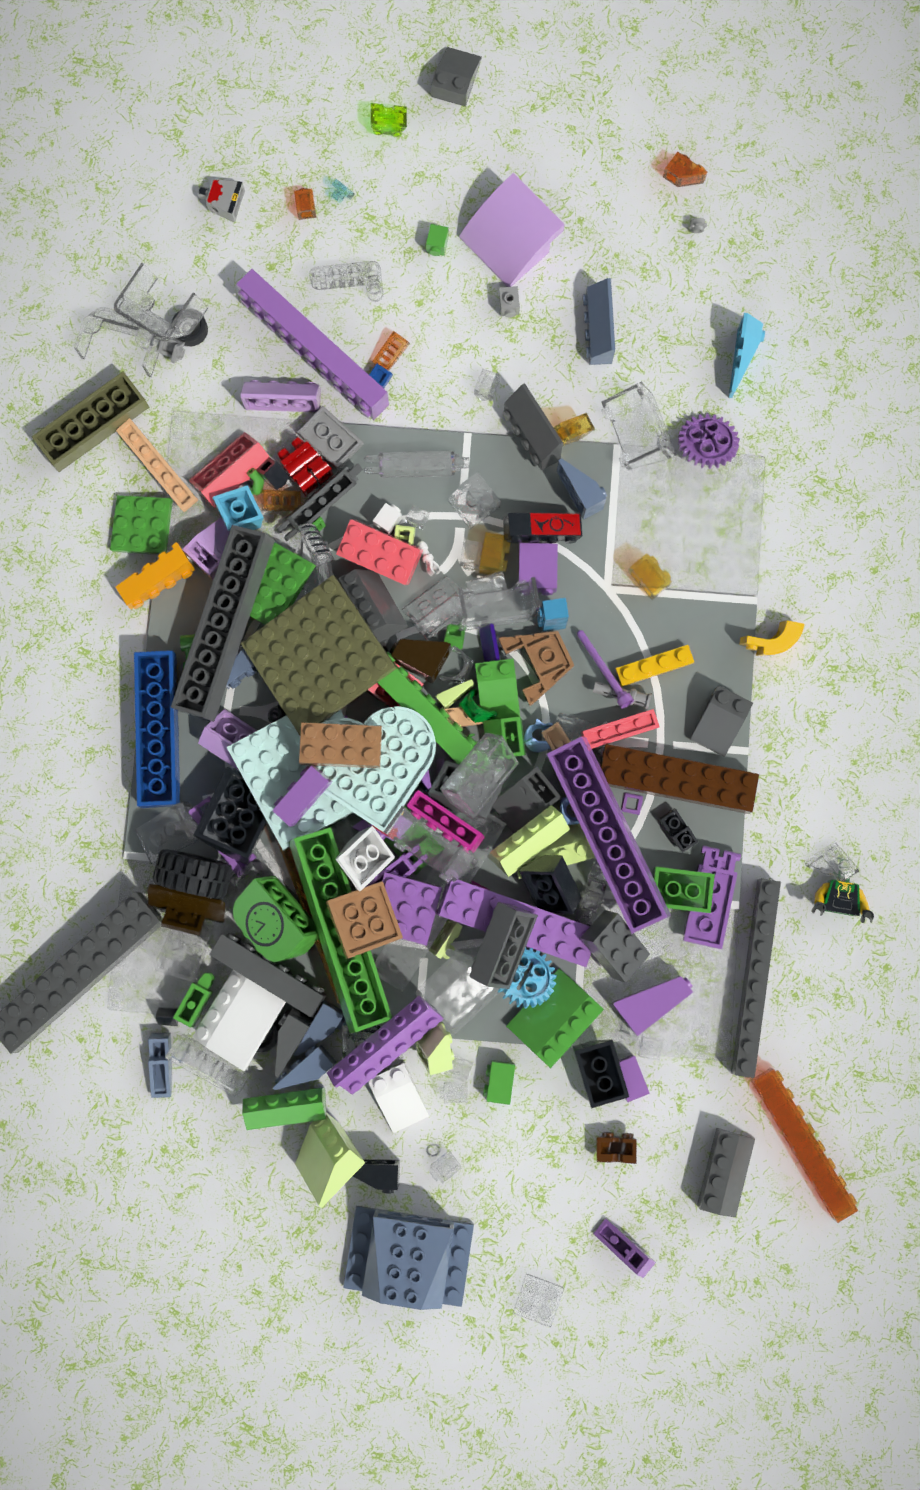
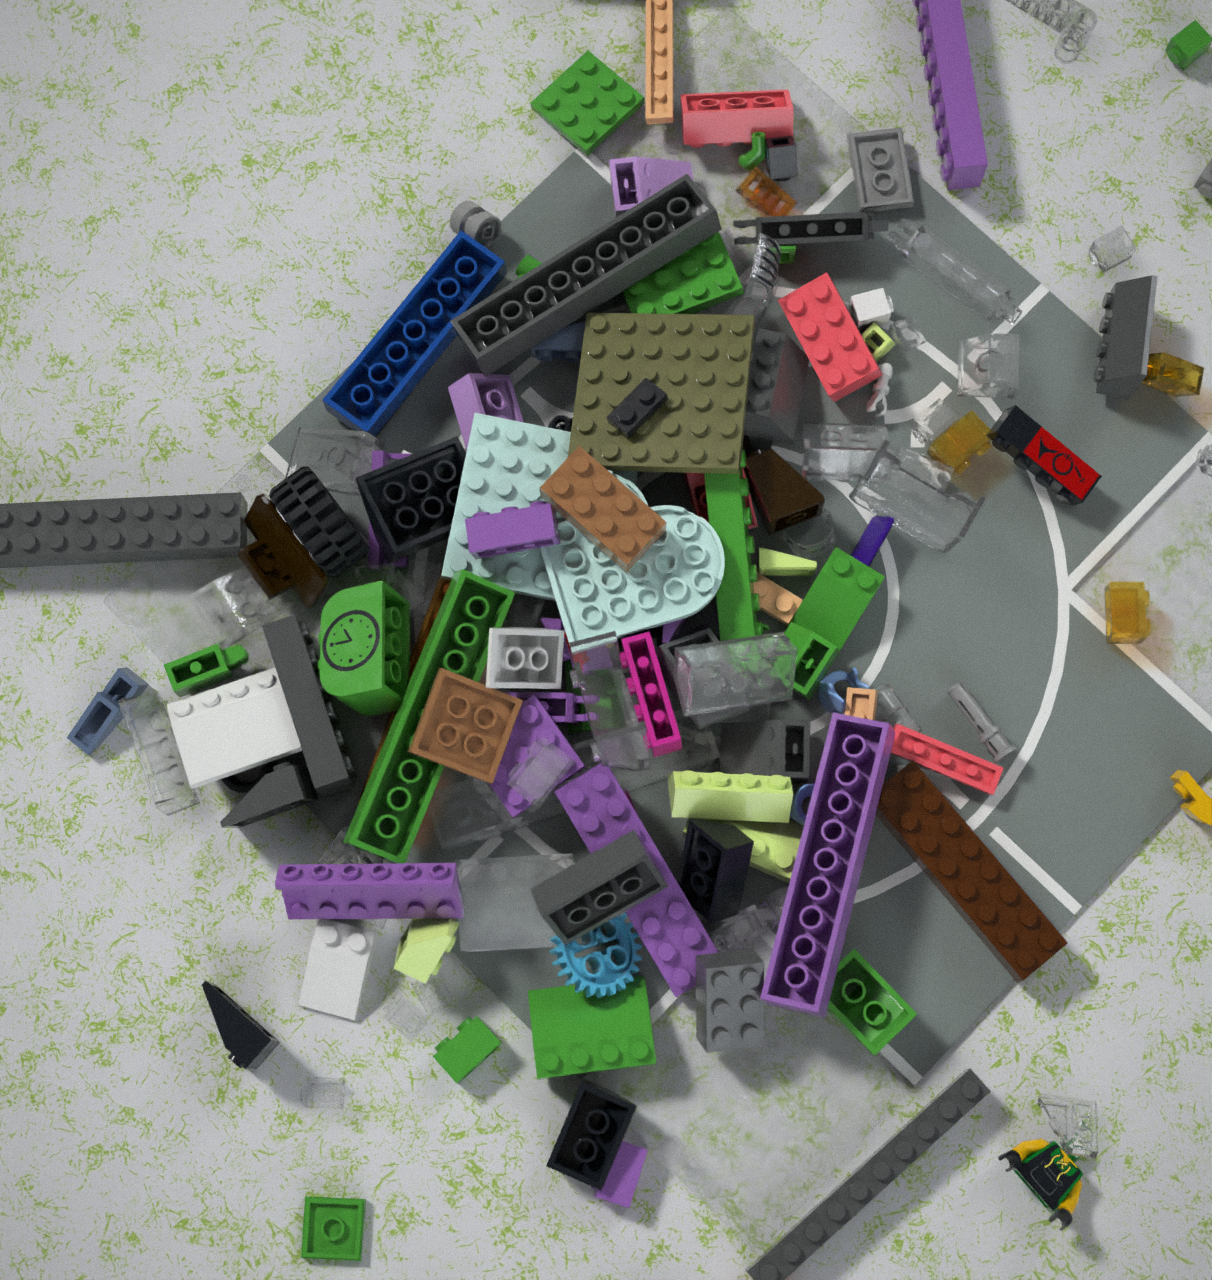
camera: 40 degrees right, 5 degrees down
(137, 641) = (476, 223): none -> light grey wheel
(155, 577) = (555, 169): light orange wedge -> none
(165, 1016) = (155, 660): black slope -> none
(239, 509) = (710, 165): medium azure slope -> none
(281, 396) = (862, 82): lavender slope -> none
(284, 1108) = (200, 870): bright green slope -> none
(302, 459) = (828, 168): red hips -> none
(313, 676) = (637, 408): none -> black plate
(313, 1067) = (261, 847): sand blue slope -> none
(323, 1025) = (324, 813): sand blue slope -> none
(327, 1159) = (200, 964): yellowish green slope -> none
(381, 375) = (996, 146): blue plate -> none
(400, 350) = (1032, 138): clear orange slope -> none
(408, 1259) = (195, 1162): sand blue wedge -> none
(423, 911) = (540, 771): none -> clear brick
(445, 938) = (551, 829): yellowish green plate -> none
(454, 636) = (838, 501): bright green slope -> none
(474, 712) = (789, 600): green helmet -> none
(507, 1230) = (333, 1228): none -> bright green tile
(539, 561) = (1008, 497): medium lavender panel -> none
(547, 657) = (926, 611): medium nougat wing -> none
(553, 615) = (972, 562): dark azure brick -> none
(582, 489) = (1127, 450): sand blue slope -> none
(617, 1148) = (536, 1240): reddish brown cylinder -> none
(623, 697) = (977, 726): medium lavender piece -> none
(624, 809) = (886, 873): medium lavender tile -> none
(649, 1005) = (714, 1105): medium lavender slope -> none
(654, 665) = (1047, 720): yellow plate -> none
(678, 830) = (917, 933): black slope -> none
(710, 928) = (861, 1076): medium lavender hinge -> none
(721, 721) = (1073, 847): dark grey slope -> none

